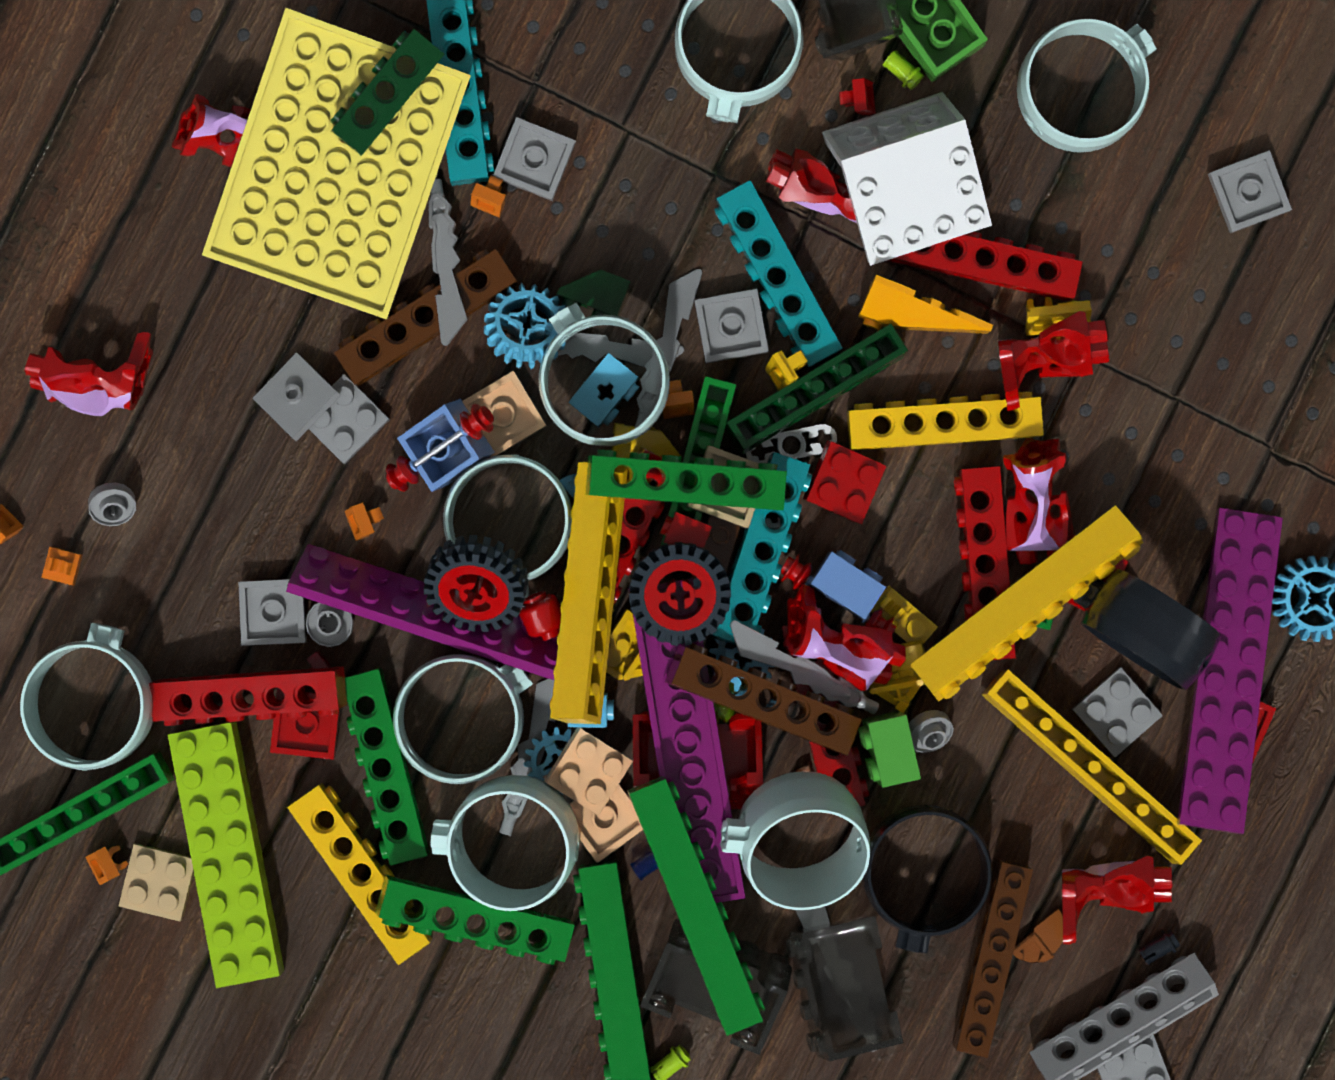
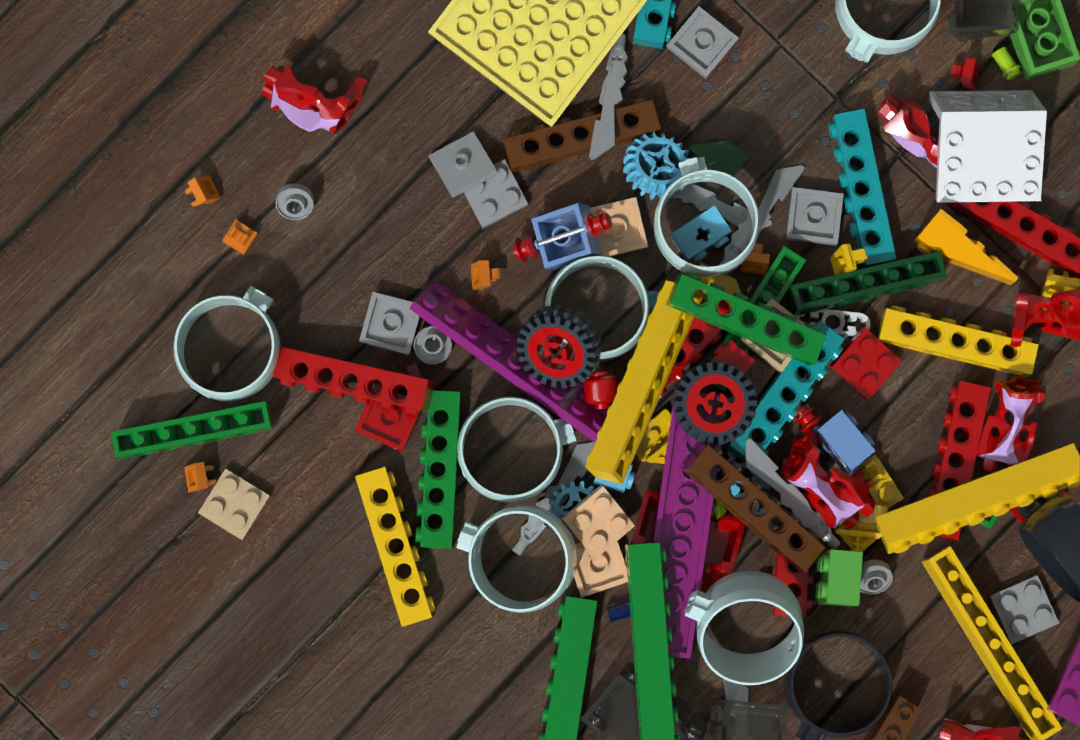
camera: 20 degrees right, 5 degrees down
(226, 854) = (295, 498): lime brick -> none
(398, 891) = (531, 642): green brick -> none
(489, 197) = (658, 60): orange tile -> none

